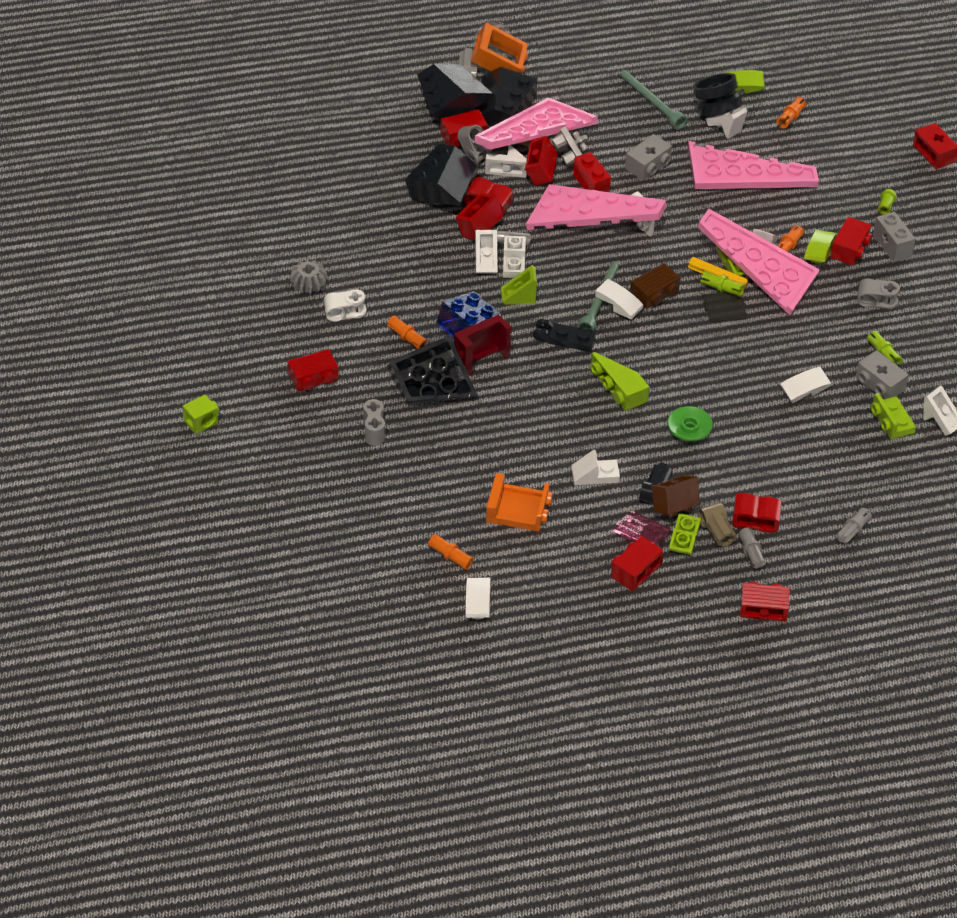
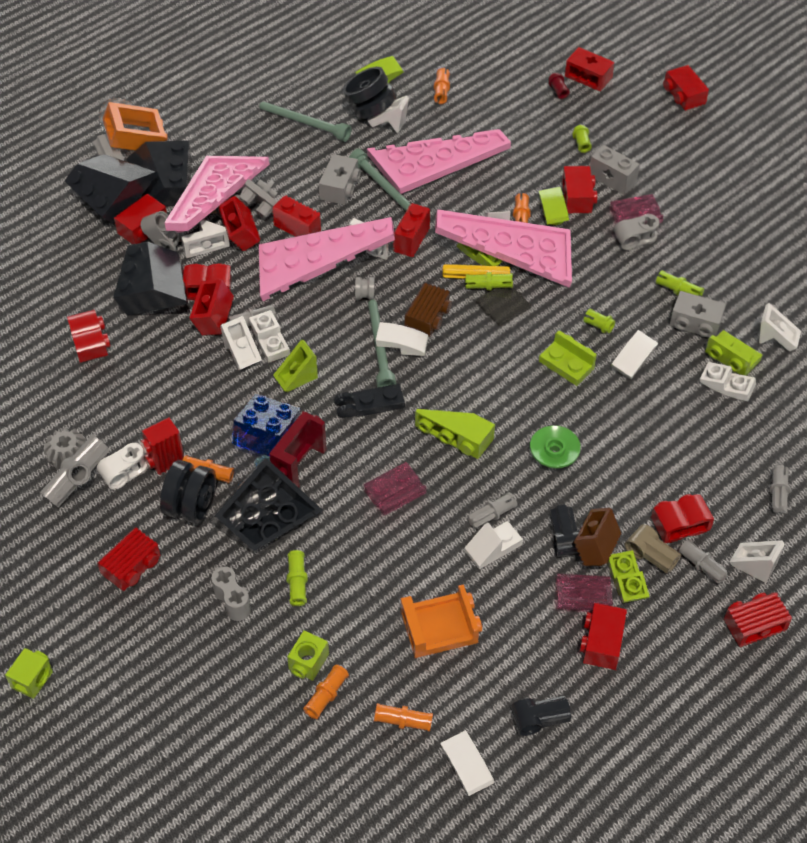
camera: 25 degrees left, 5 degrees up
(292, 299) = (63, 482): none -> light grey piece
(371, 201) = (88, 336): none -> red brick
(381, 301) = (162, 445): none -> red brick
(381, 339) = (188, 491): none -> black wheel
(405, 484) = (308, 646): none -> lime brick
(405, 513) = (326, 691): none -> orange pin
(429, 432) = (297, 578): none -> lime pin
(544, 404) = (394, 488): none -> clear pink plate
(546, 589) = (533, 716): none -> black piece
(610, 447) = (492, 510): none -> light grey axle
(614, 250) = (364, 288): none -> light grey wheel
(678, 150) = (370, 170): none -> sand green piece
(682, 219) = (411, 230): none -> red brick
(748, 367) = (568, 358): none -> lime bracket
(797, 351) = (600, 321): none -> lime pin
(798, 565) = (757, 558): none -> white slope
(870, 436) = (722, 380): none -> white slope
(895, 273) = (635, 207): none -> clear pink plate
(898, 146) = (556, 82): none -> dark red pin

